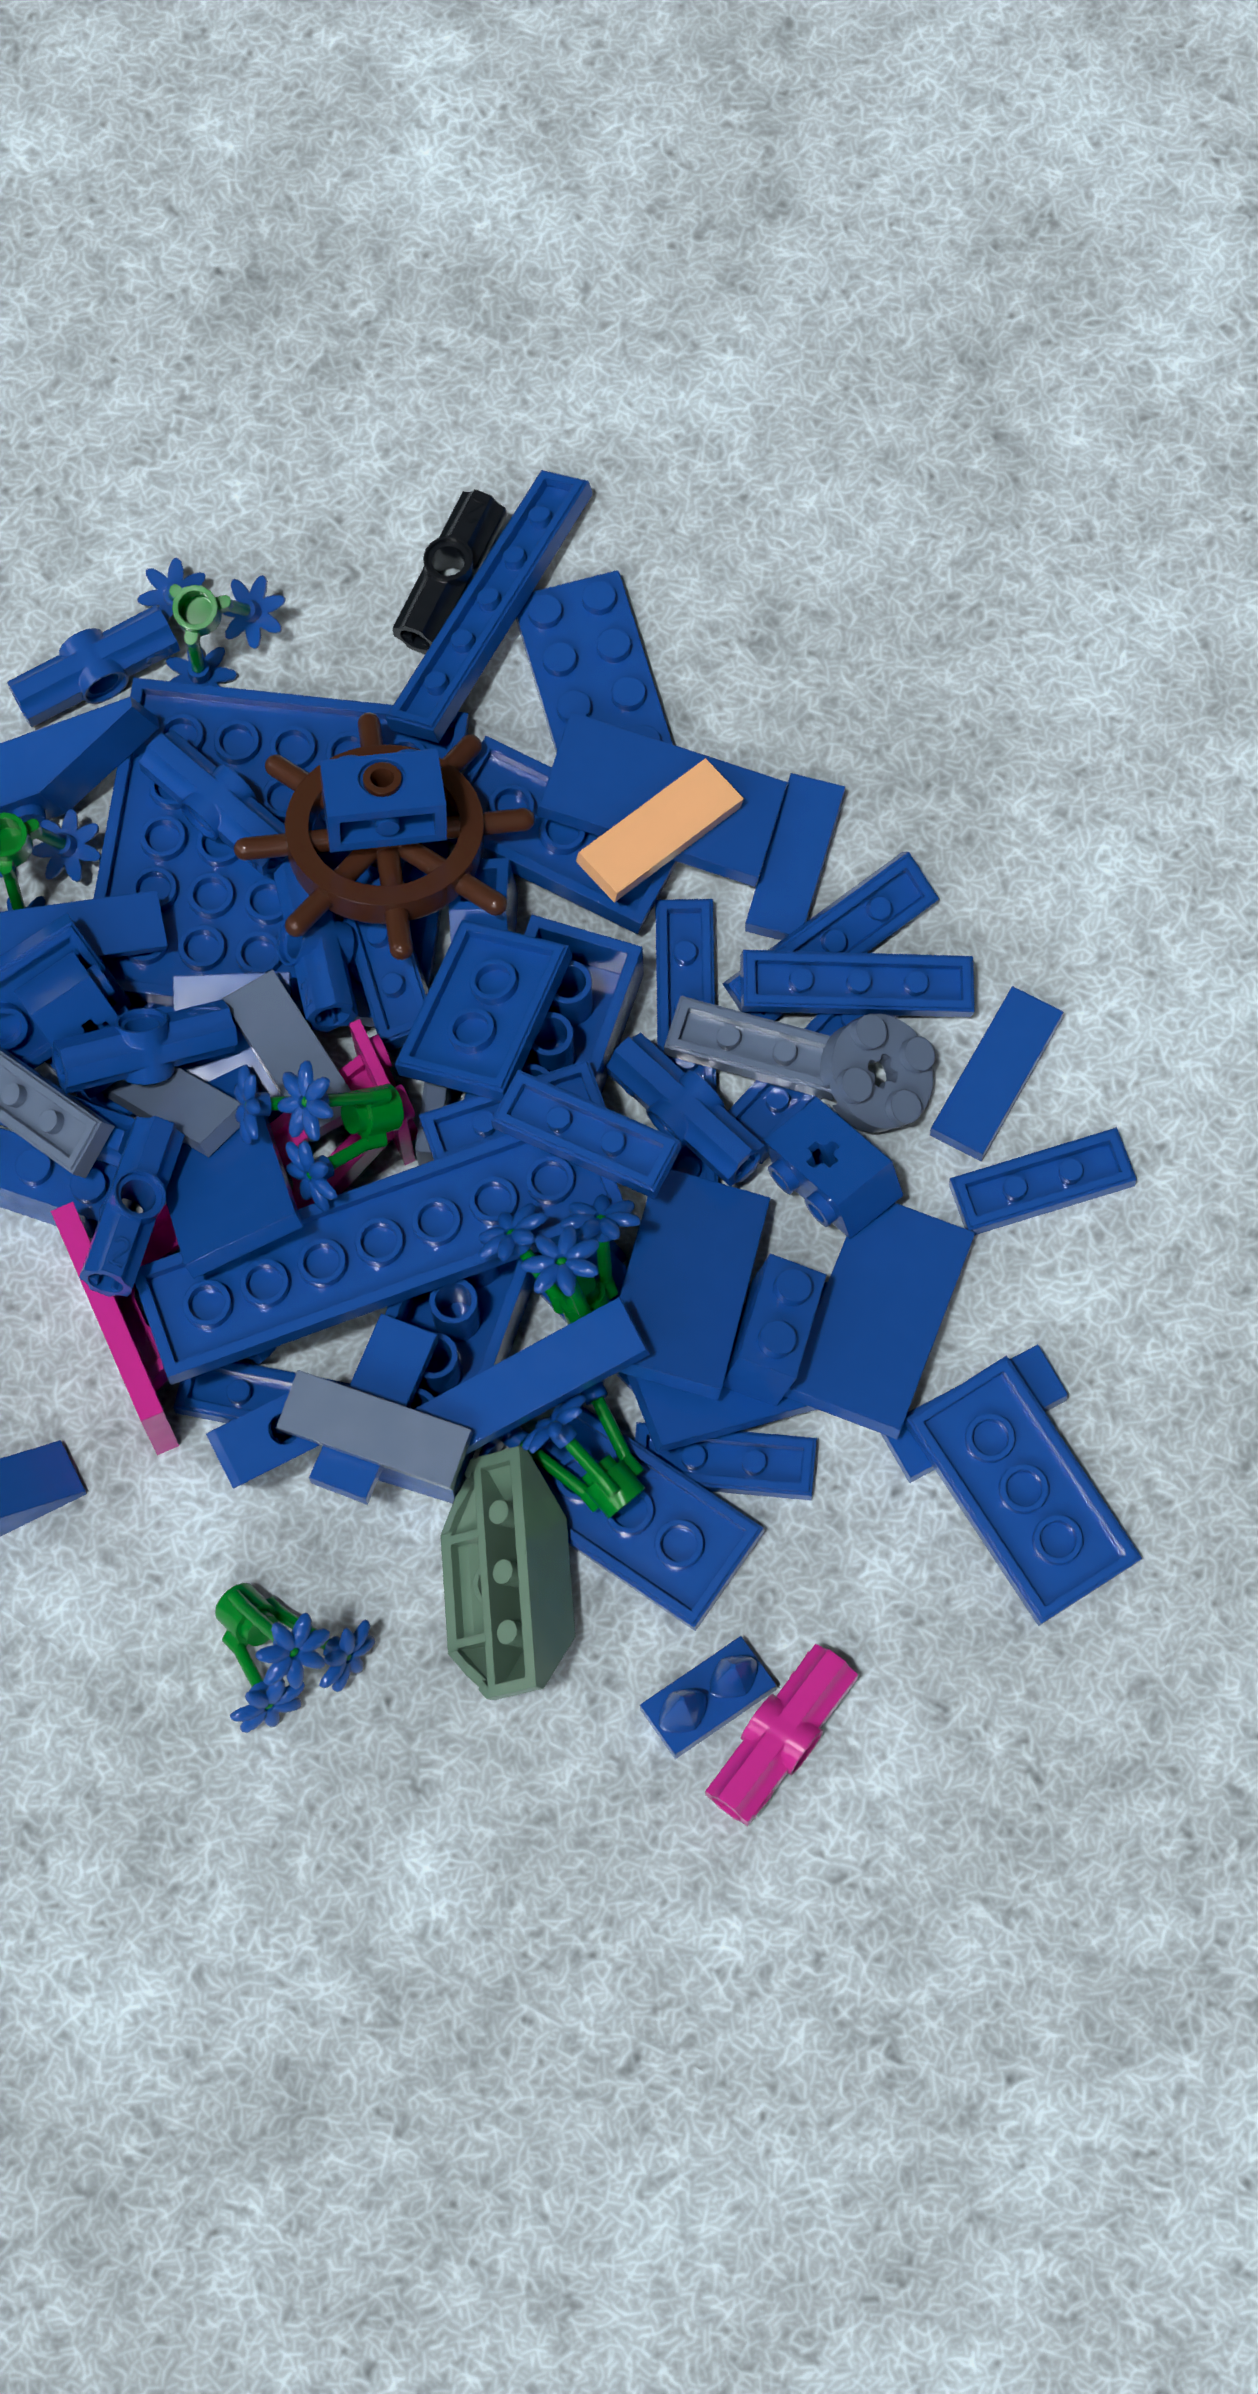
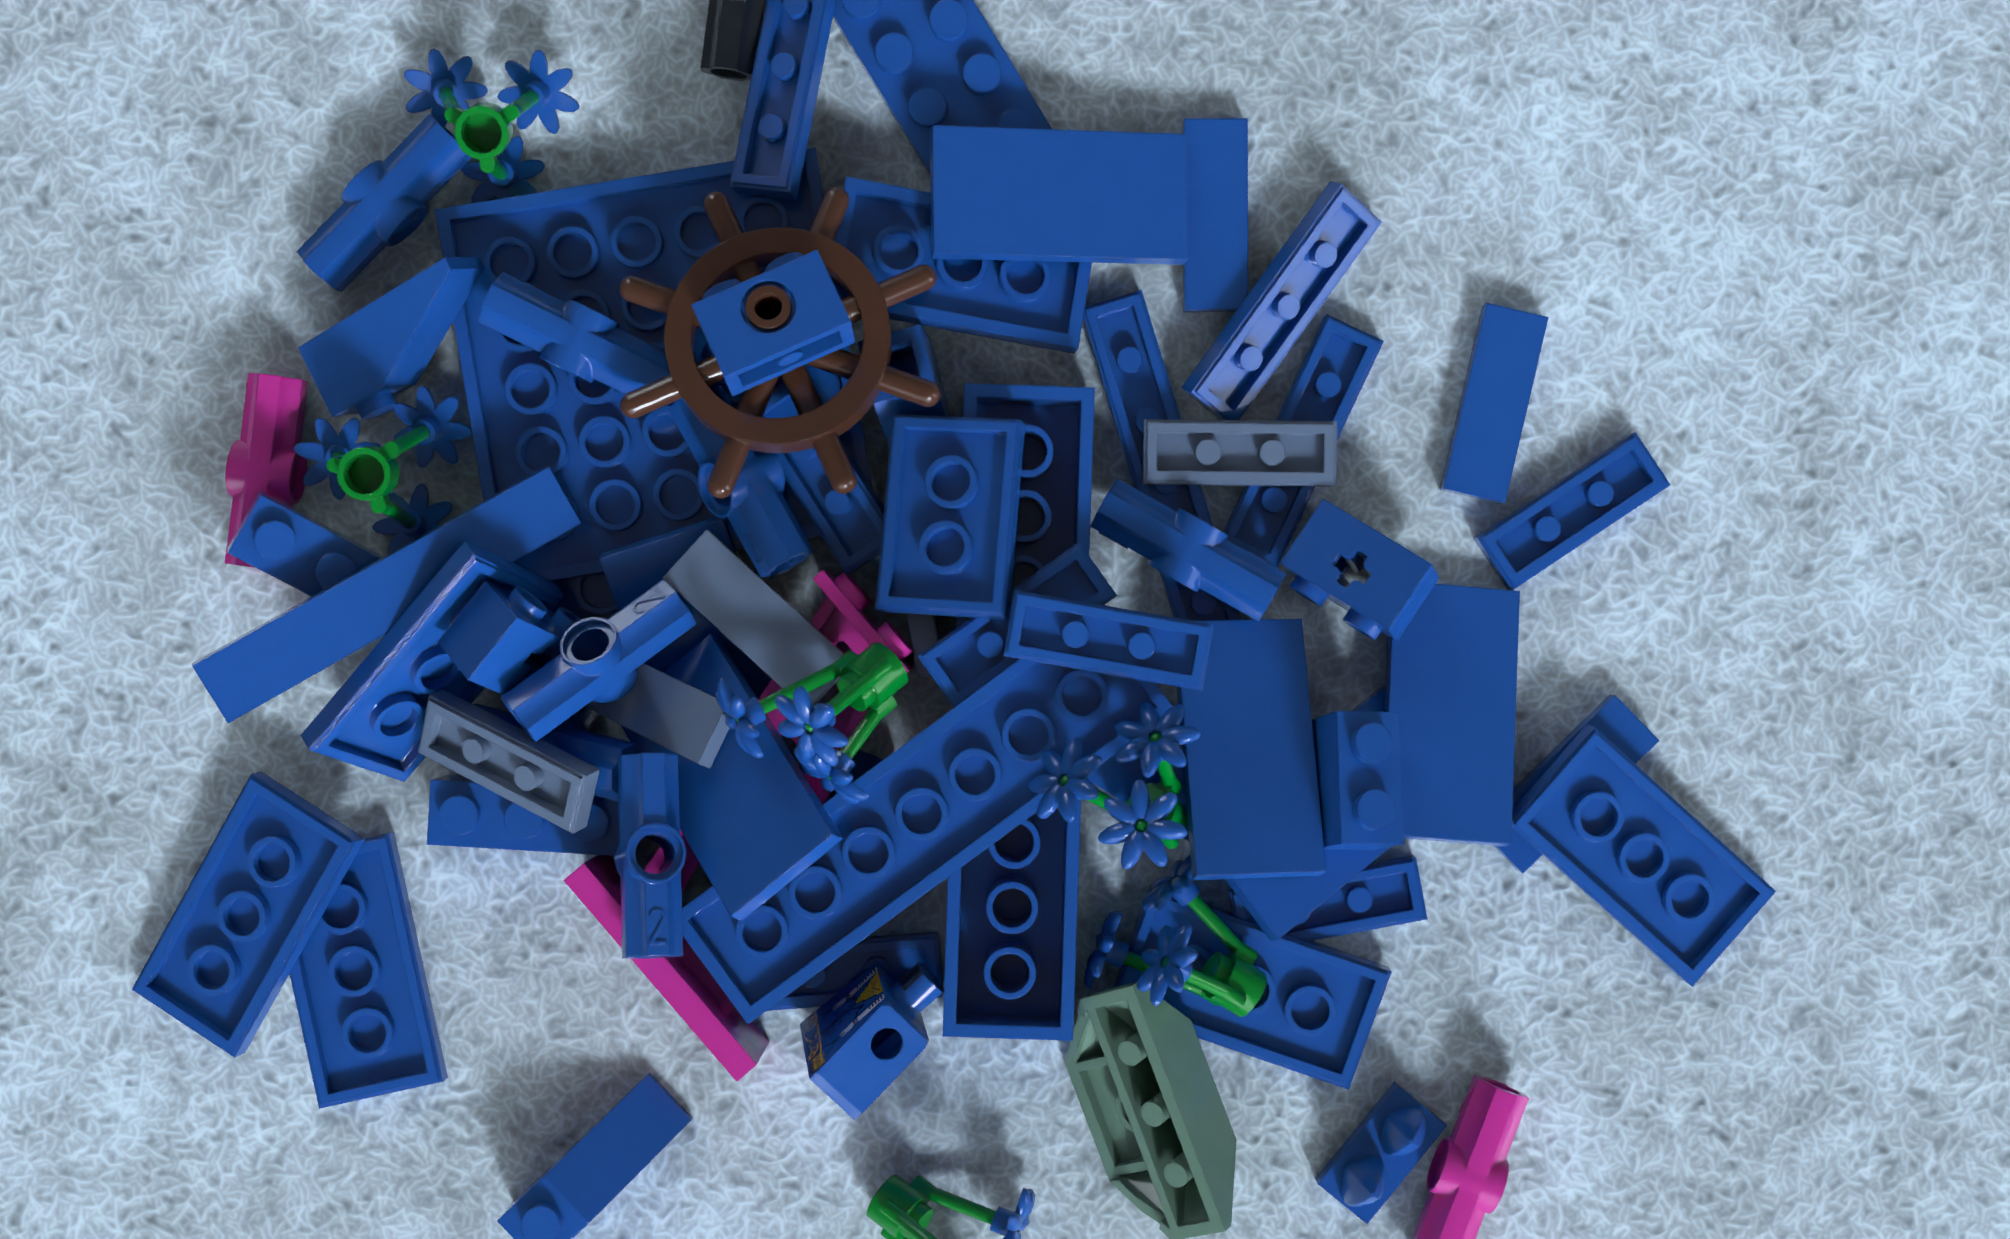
camera: 15 degrees left, 20 degrees up
(374, 1430) = (984, 1026): sand blue tile -> none
(391, 1371) = (971, 989): blue tile -> none
(542, 1375) = (1126, 928): blue tile -> none
(659, 830) = (1072, 242): light nougat tile -> none
(856, 983) = (1326, 352): blue tile -> none
(907, 1069) = (1405, 440): sand blue plate -> none

